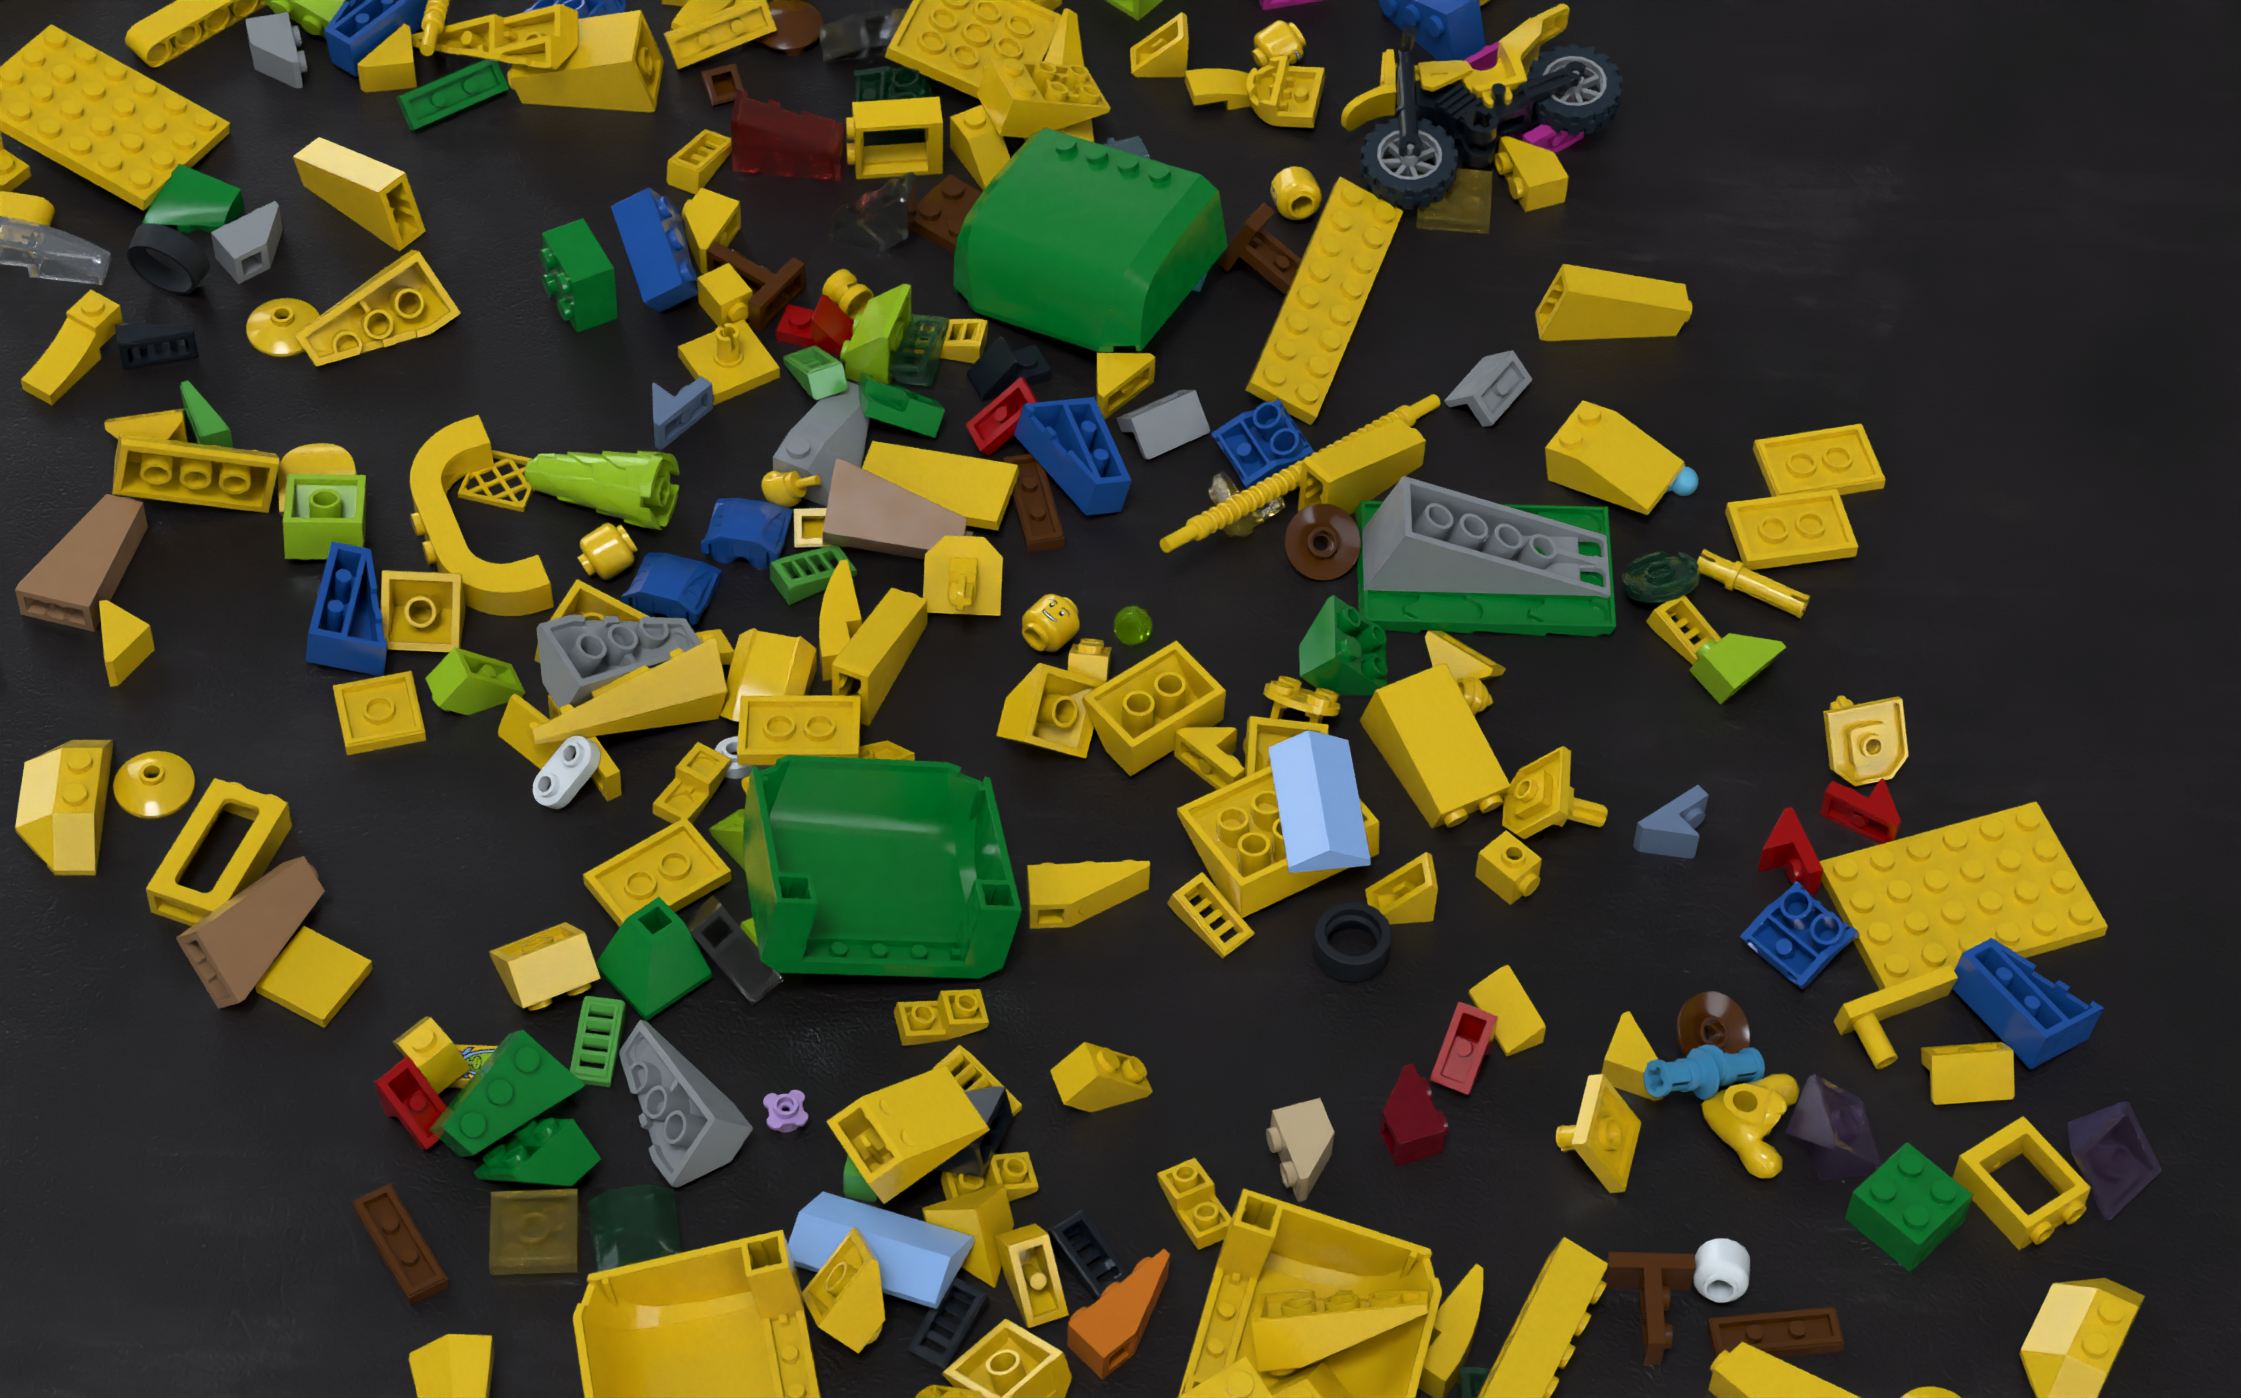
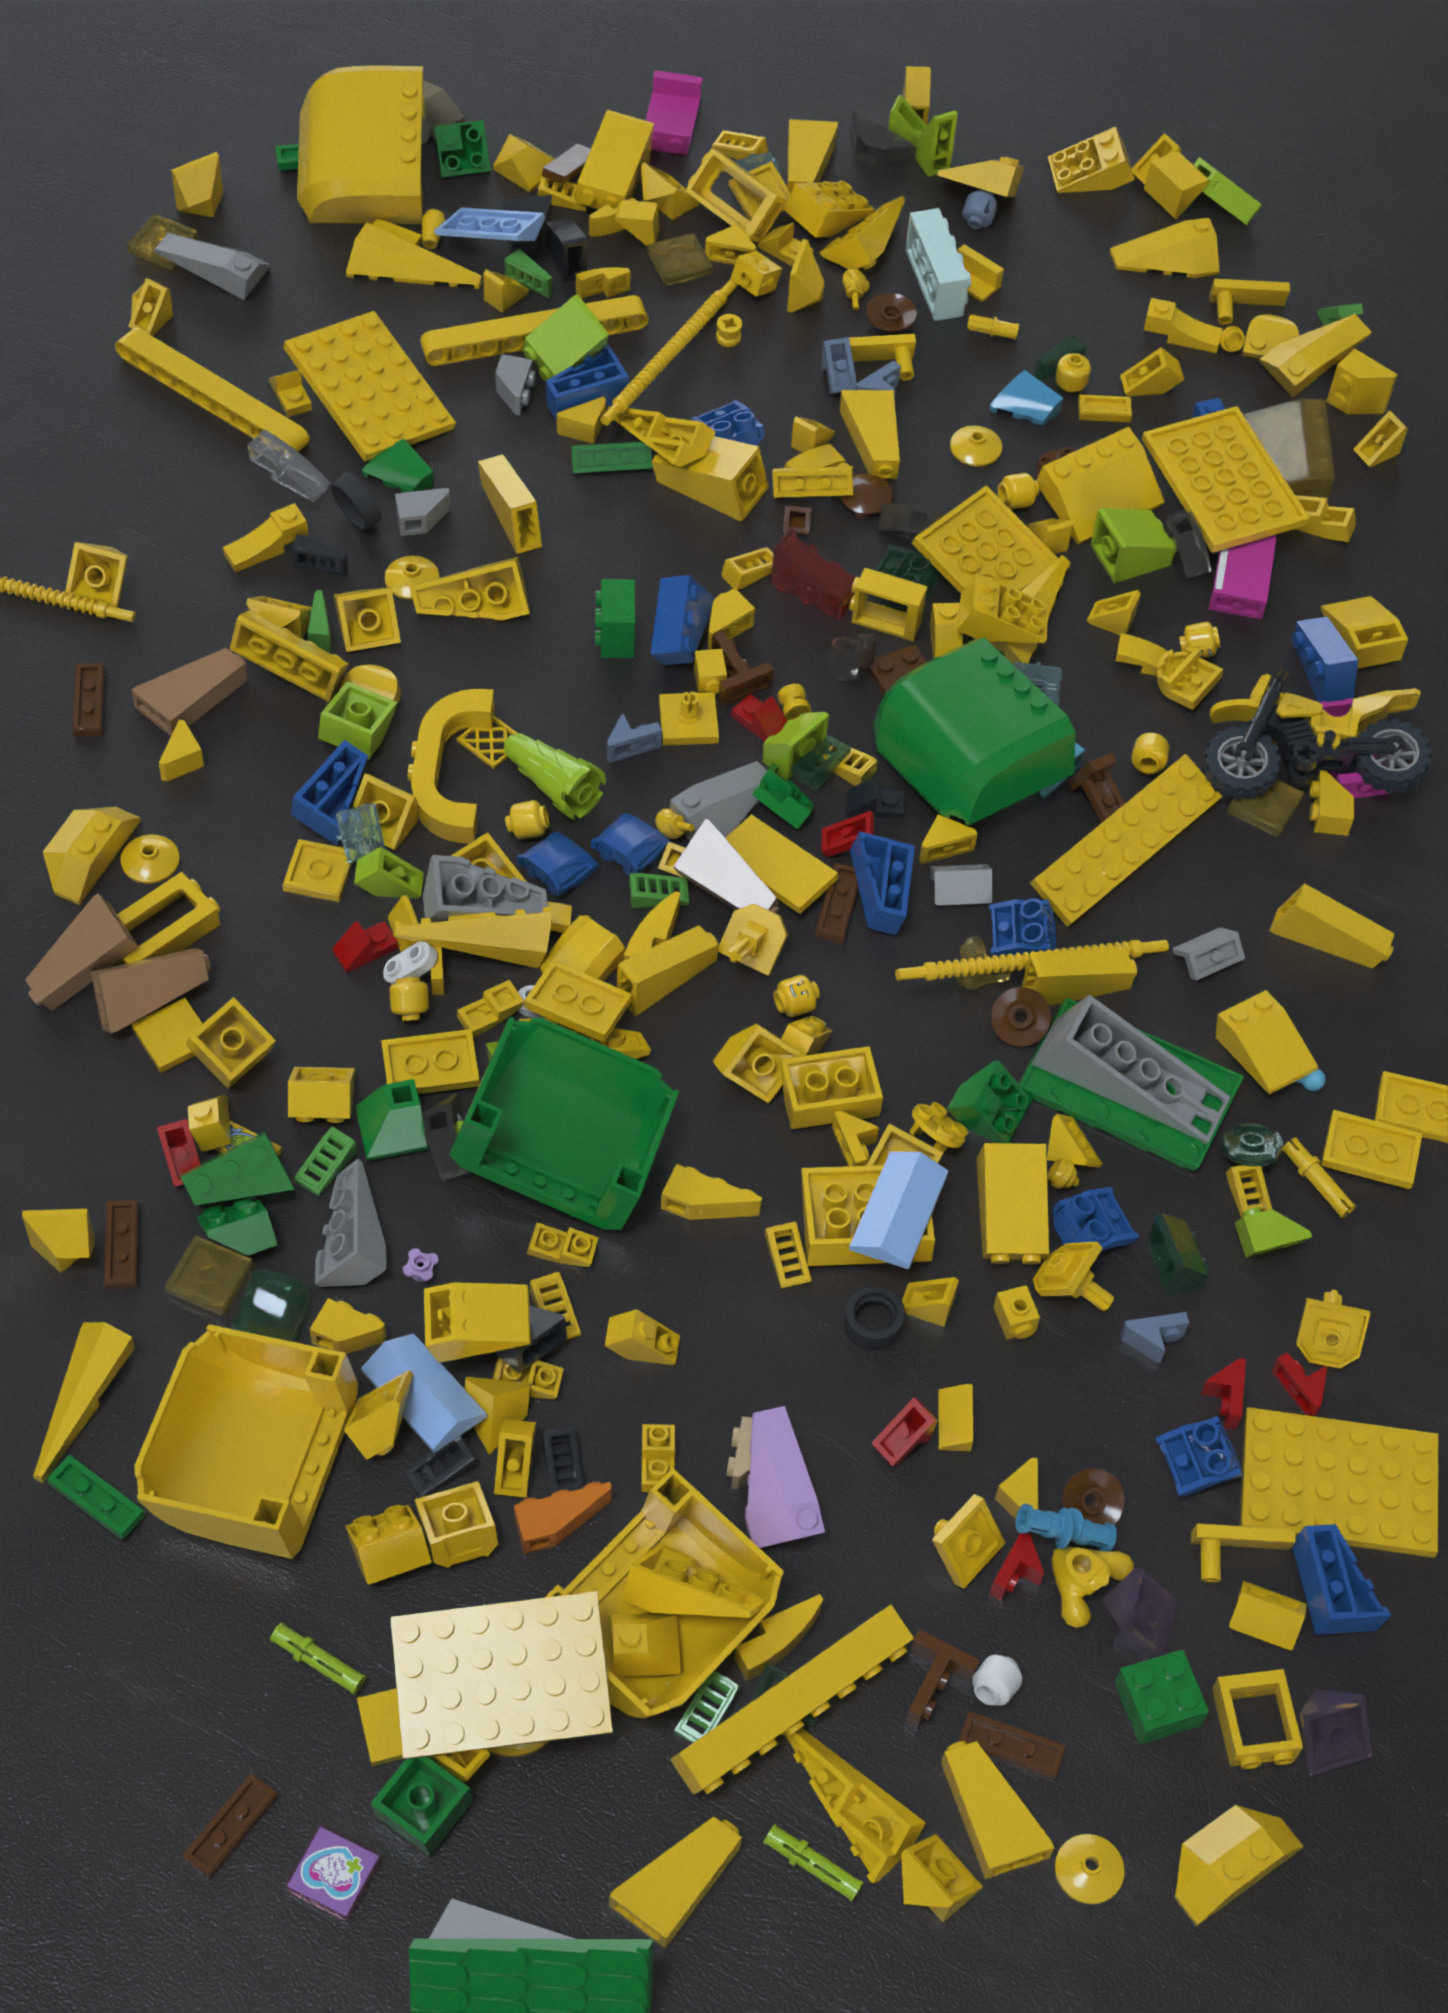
camera: 25 degrees right, 5 degrees up
(153, 907) = (89, 944): none -> medium nougat slope
(261, 394) = (367, 618): none -> yellow slope
(324, 1261) = (60, 1235): none -> yellow slope
(401, 951) = (230, 1043): none -> yellow brick
(411, 643) = (359, 831): none -> clear light blue piece
(490, 776) = (363, 946): none -> red slope
(588, 811) = (409, 997): none -> yellow head
(743, 1213) = (345, 1329): none -> yellow slope
(817, 372) = (741, 750): bright green slope -> none
(1132, 625) = (854, 1021): clear neon green plate -> none
(1364, 1168) = (780, 1490): none -> lavender wedge
(1410, 1121) = (837, 1466): dark red slope -> none
(1532, 729) = (1093, 1218): none -> blue slope
(1648, 731) = (1176, 1255): none -> clear green slope
(1674, 1134) = (1020, 1562): none -> red slope

